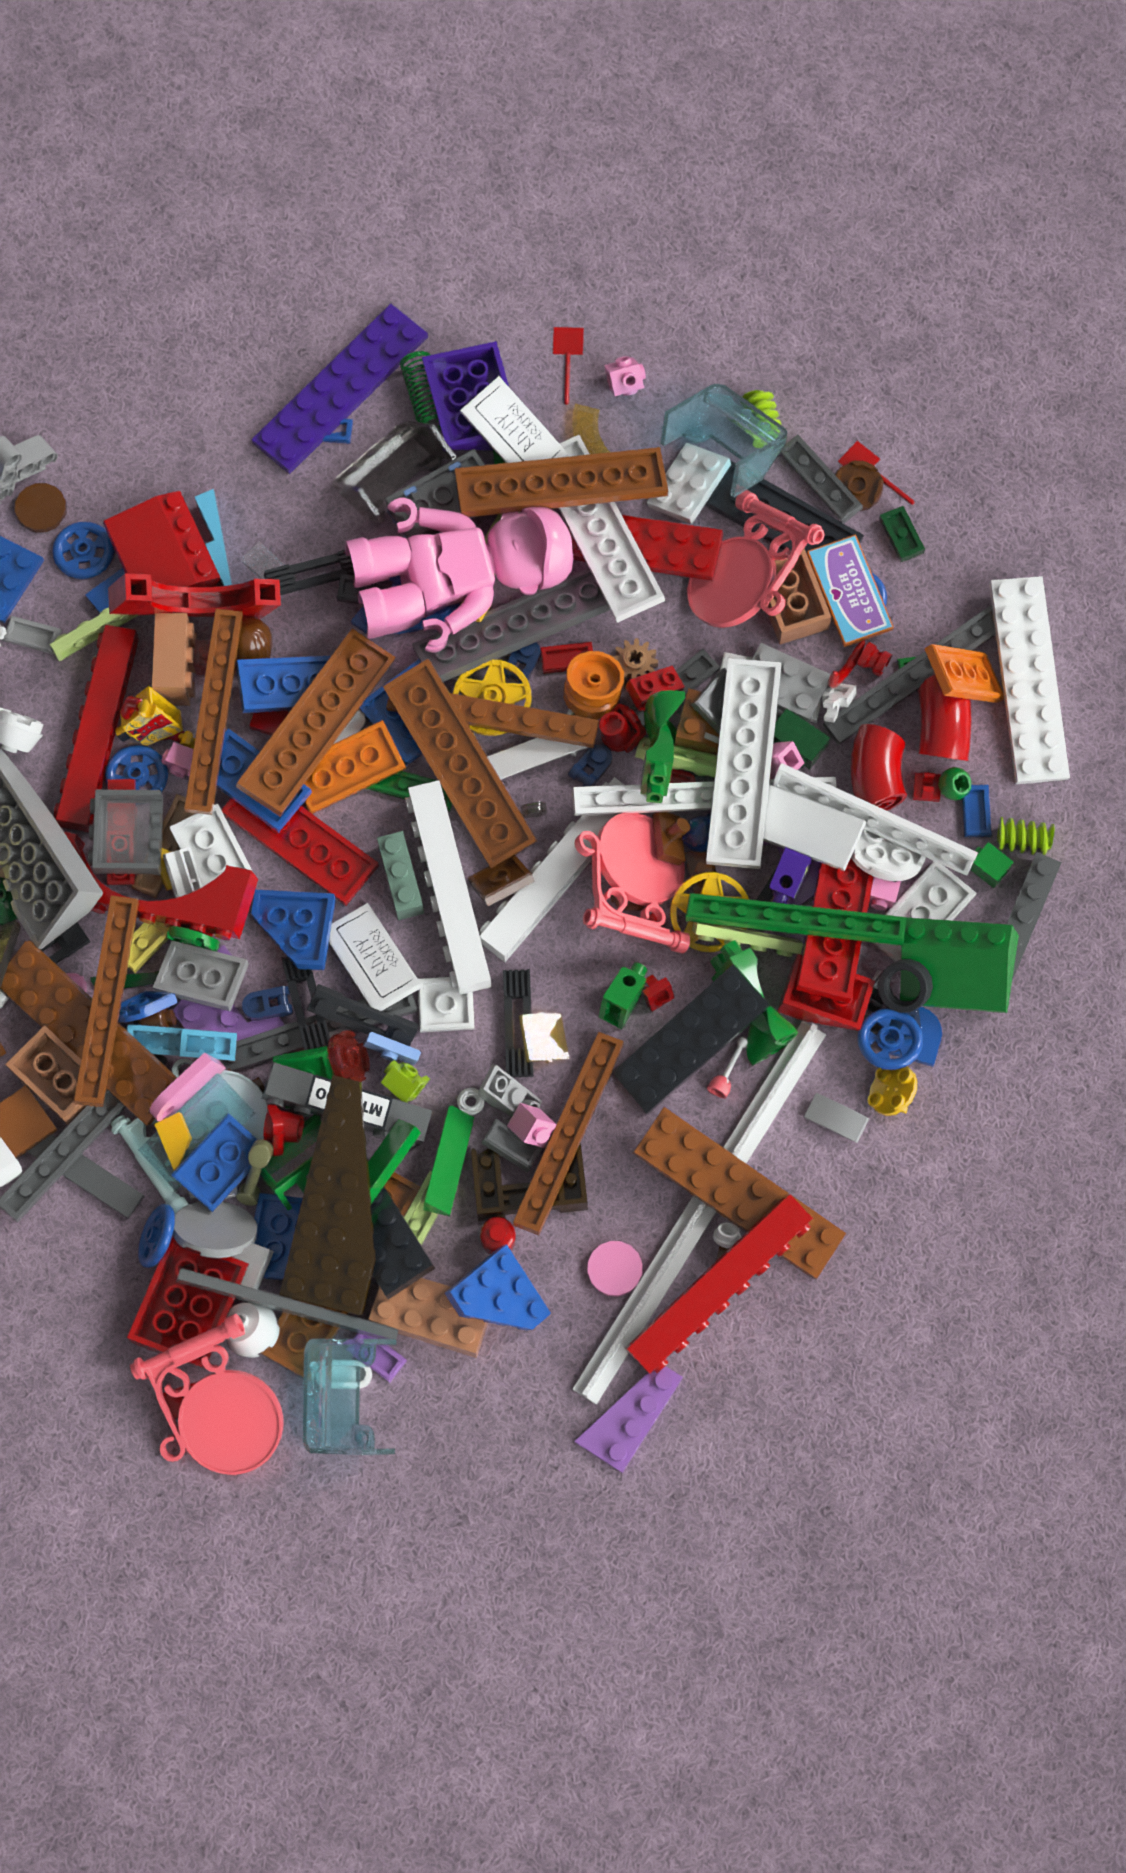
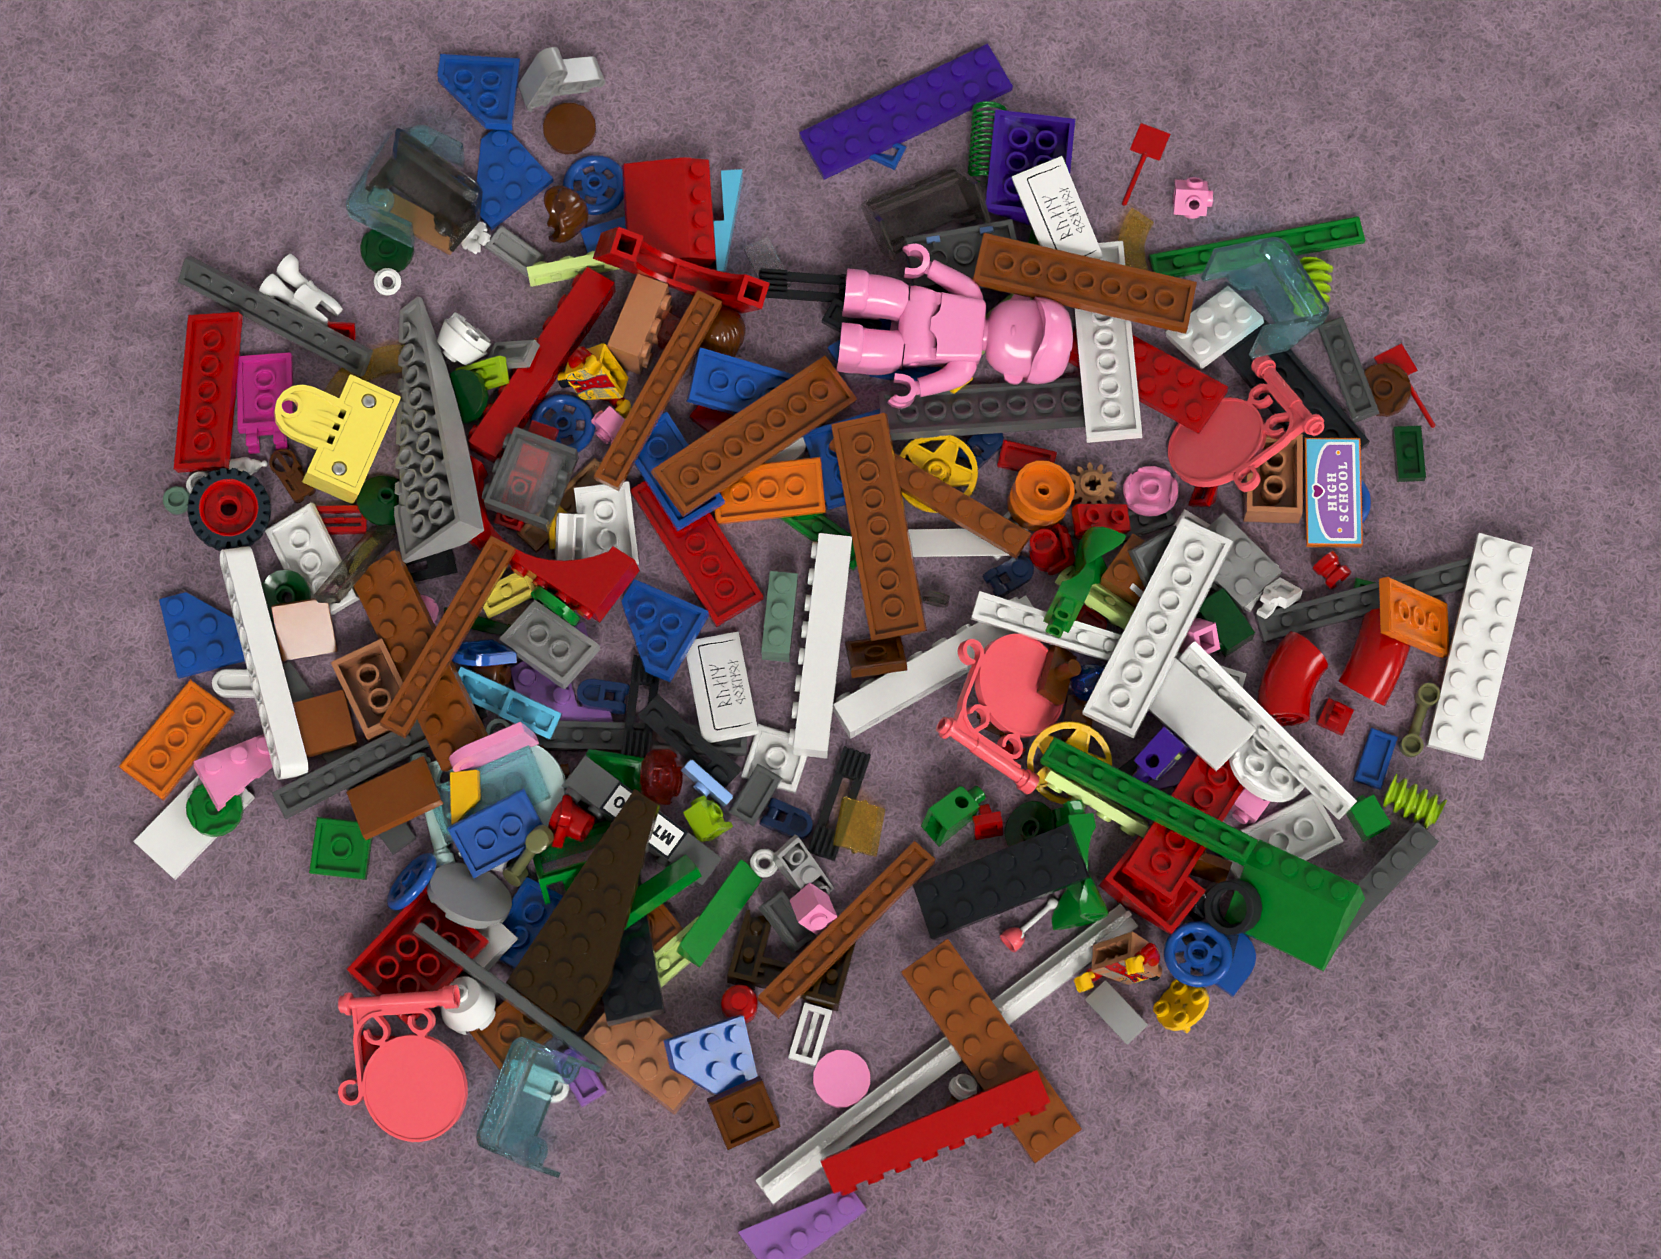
camera: 20 degrees right, 0 degrees up
(41, 776) = (469, 394): none -> dark green tile
(46, 756) = (492, 370): none -> lime plate
(66, 727) = (517, 353): none -> light grey tile
(67, 582) = (566, 212): none -> reddish brown piece
(79, 1230) = (340, 849): none -> green tile
(111, 1166) = (394, 798): none -> dark orange tile
(439, 1043) = (755, 795): none -> dark grey tile
(485, 1055) = (796, 821): none -> dark blue plate
(539, 1332) = (743, 1112): none -> reddish brown tile
(572, 1263) = (817, 1011): none -> white tile
(688, 646) = (1150, 491): none -> bright pink tile
(690, 975) = (1026, 819): none -> dark green dish
(737, 379) = (1300, 239): none -> green tile
(742, 635) = (1209, 497): none -> red slope
(825, 1069) = (1122, 959): none -> torso
(837, 678) = (1283, 576): red animal -> none
(873, 959) = (1211, 868): none -> reddish brown tile
(954, 783) = (1363, 723): green piece -> none
(998, 742) = (1425, 698): none -> olive bar

